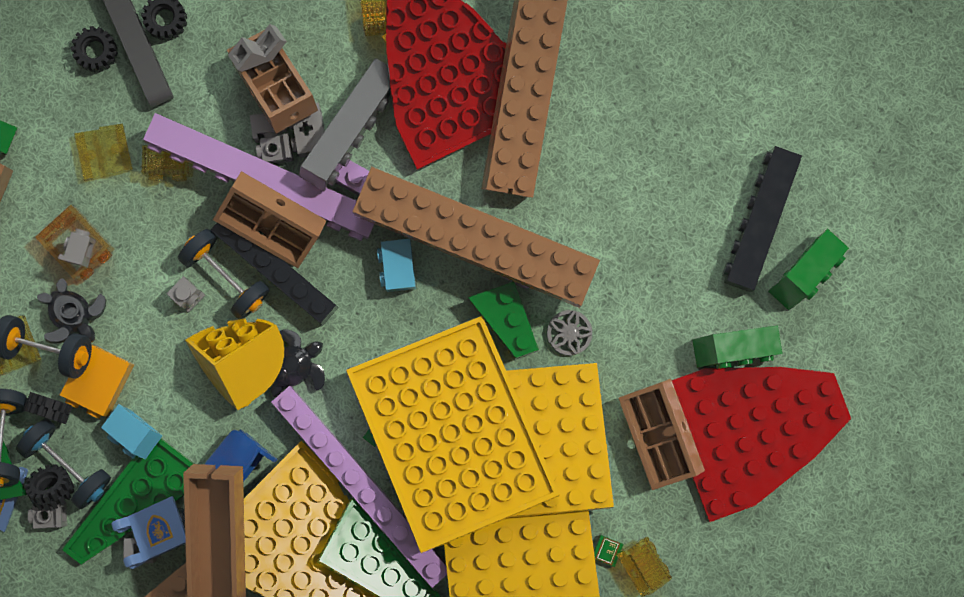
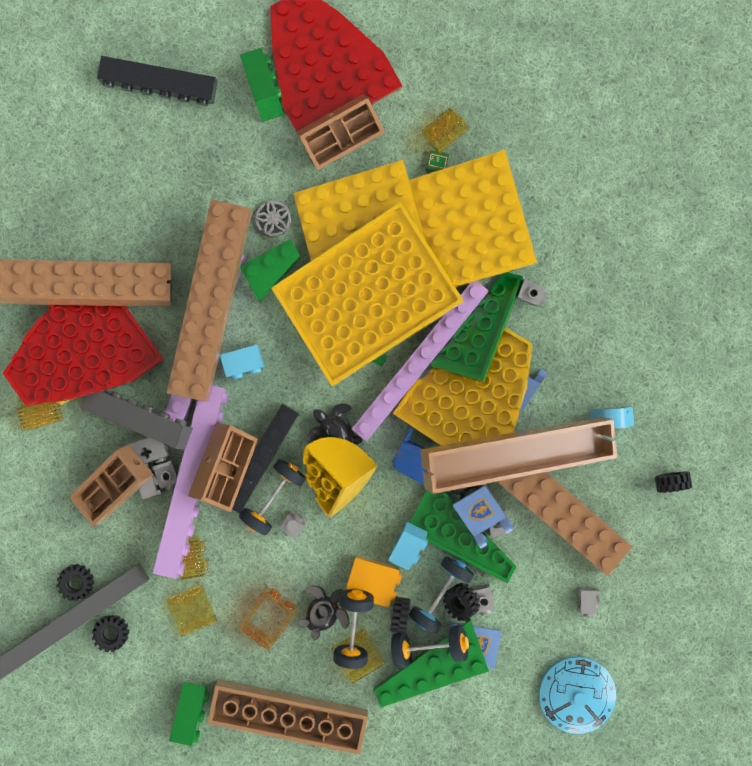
camera: 100 degrees left, 5 degrees up
(78, 248) = (271, 614): light grey brick -> none
(249, 54) = (92, 505): light grey slope -> none
(810, 270) = (192, 36): green wedge -> none

